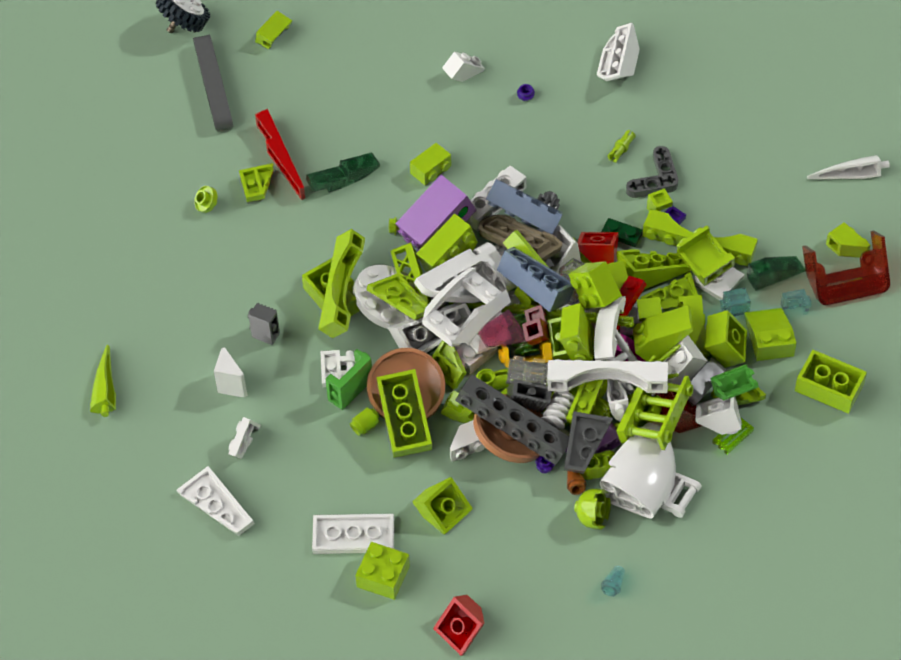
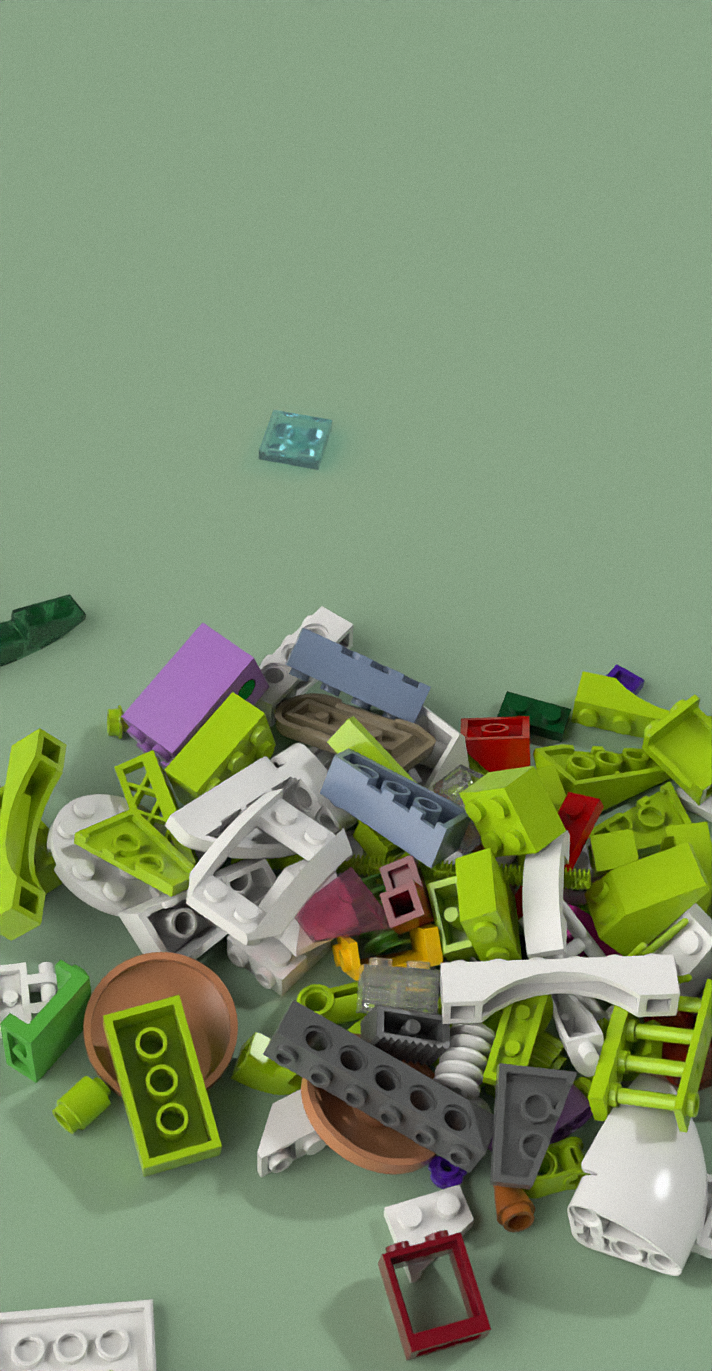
camera: 10 degrees left, 5 degrees down
(430, 164) = (177, 610): lime brick -> none
(443, 505) = (252, 1274): lime slope -> none
(450, 363) = (244, 979): lime wing -> none
(462, 67) = (222, 446): white slope -> none
(505, 63) = (295, 439): none -> clear light blue plate
(525, 92) = (335, 485): dark purple plate -> none
(532, 489) = (426, 1215): none -> white wing
(535, 538) = (448, 1335): none -> dark red window
(550, 199) = (399, 660): dark grey gear -> none
(593, 508) = (556, 1261): lime cylinder -> none
(619, 54) = (489, 418): white wedge -> none
(621, 146) = (512, 567): lime pin -> none
(659, 200) = (595, 657): lime panel -> none
(663, 176) = (590, 620): dark grey beam -> none

